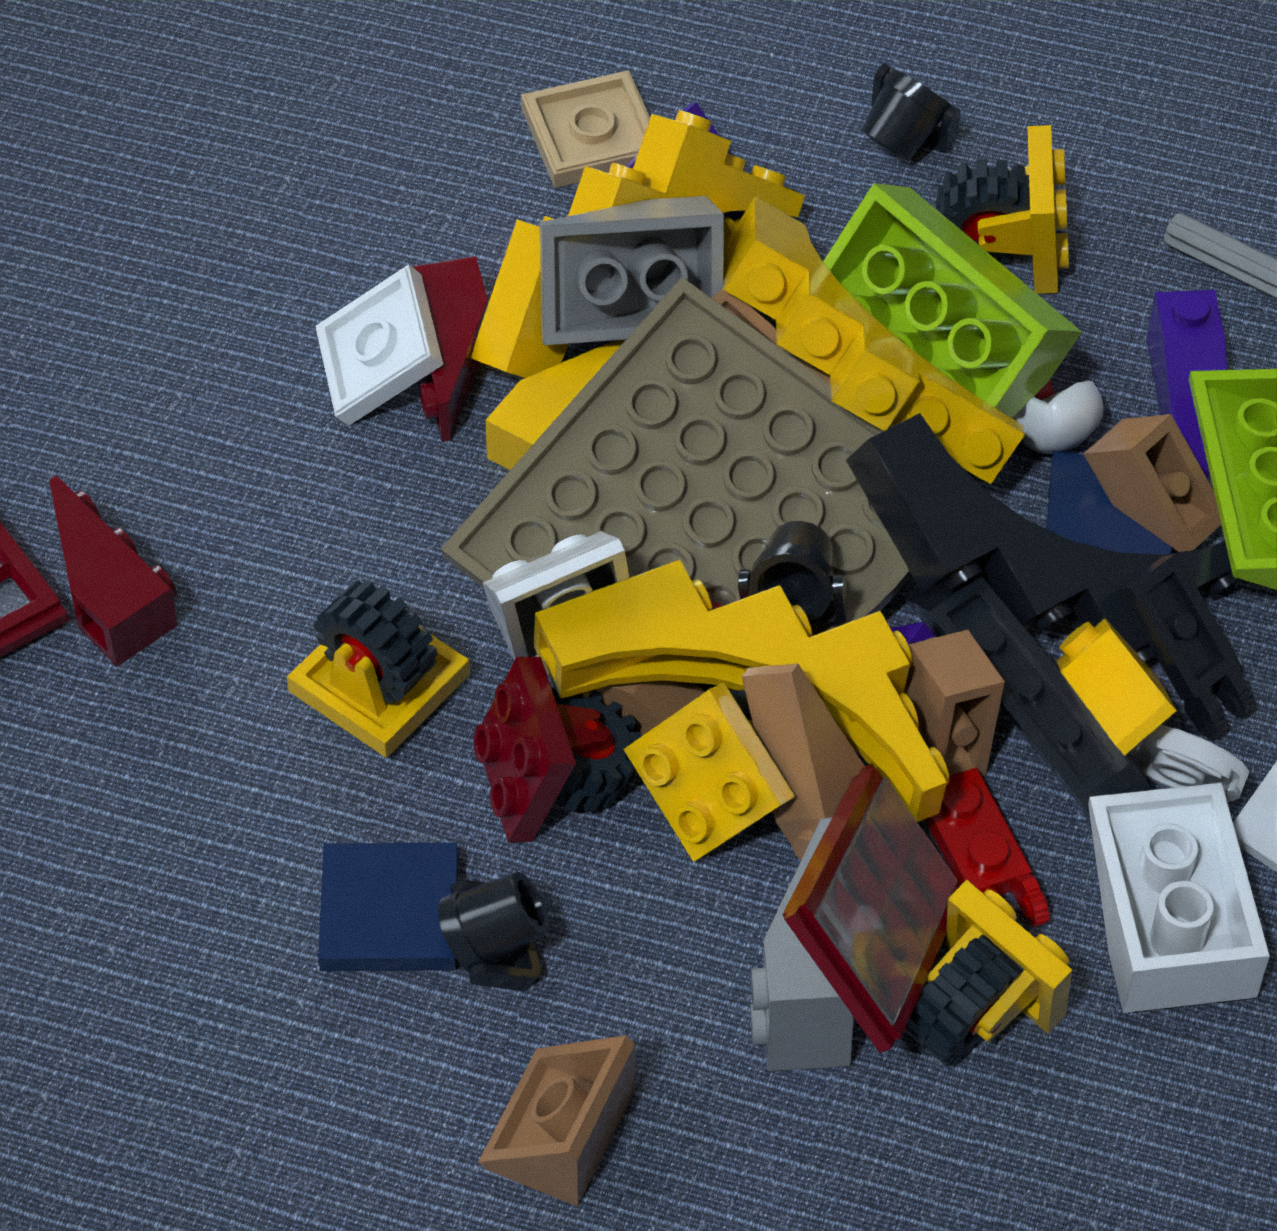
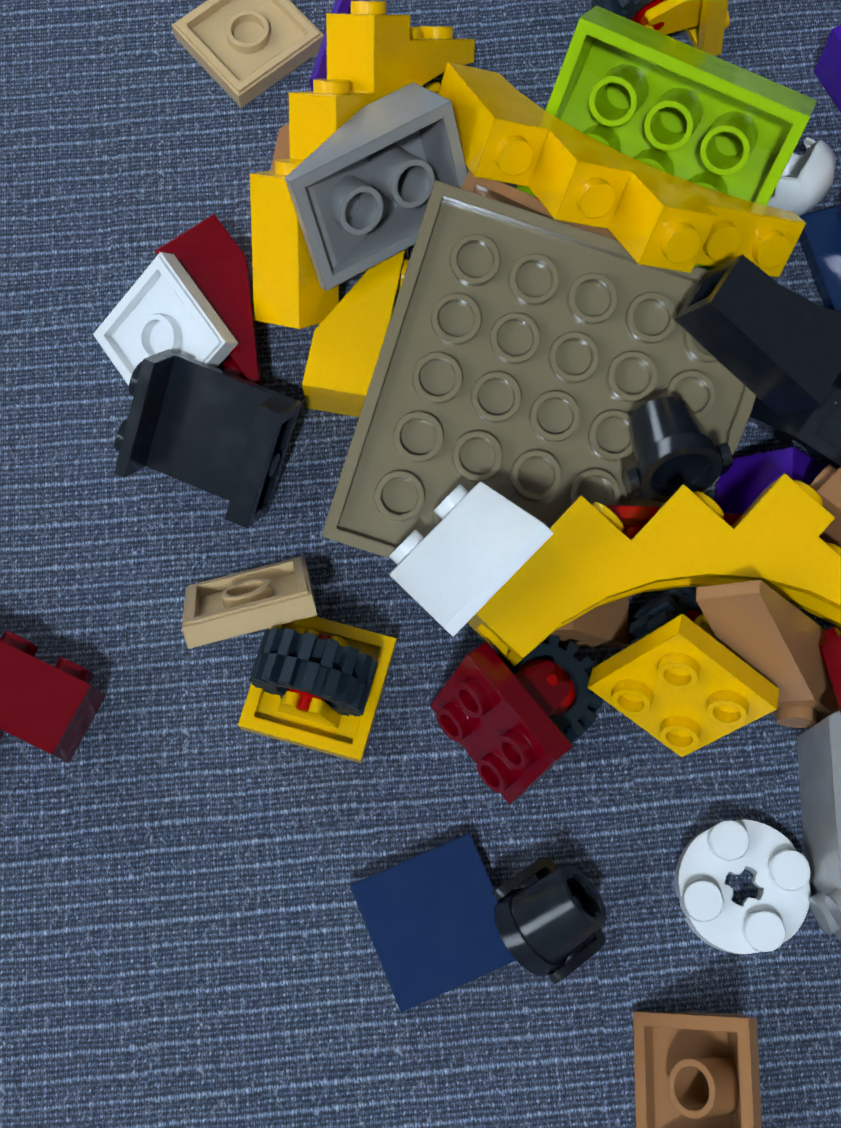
camera: 20 degrees left, 20 degrees up
(343, 571) = (247, 602): none -> tan tile
(377, 431) = (207, 431): none -> black panel
(684, 949) = (777, 871): none -> white plate

